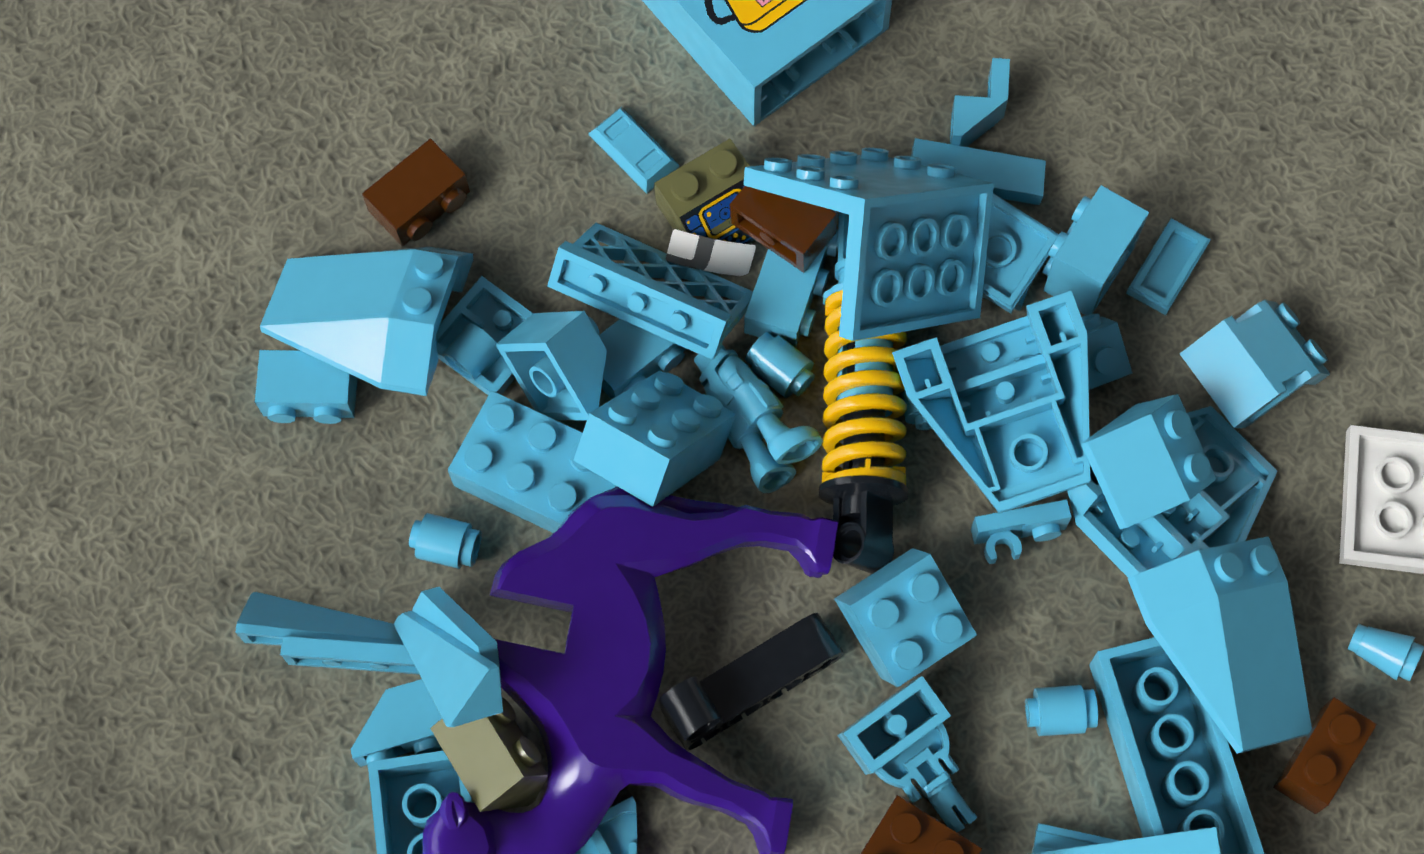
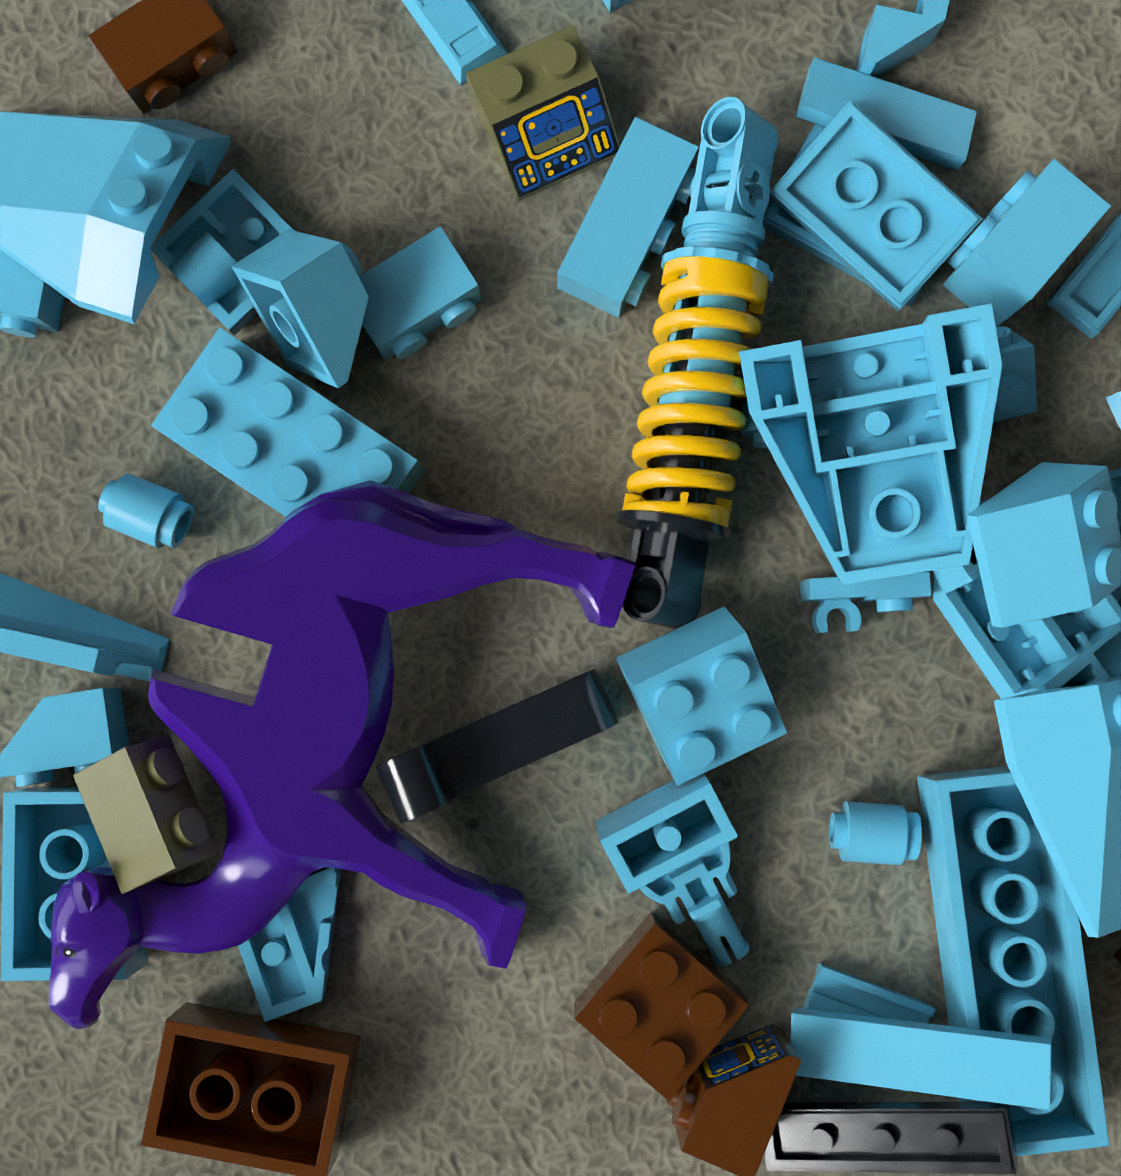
camera: 10 degrees right, 15 degrees up
(452, 658) = (110, 700): medium azure wedge -> none
(631, 294) = (443, 243): medium azure fence -> none
(654, 437) = (414, 423): medium azure brick -> none
(710, 254) = (527, 179): white sticker -> none
(757, 418) = (548, 402): medium azure piece -> none
(780, 365) = (595, 340): medium azure brick -> none
(784, 225) = (627, 143): reddish brown brick -> none
(910, 239) = (789, 192): medium azure bracket -> none

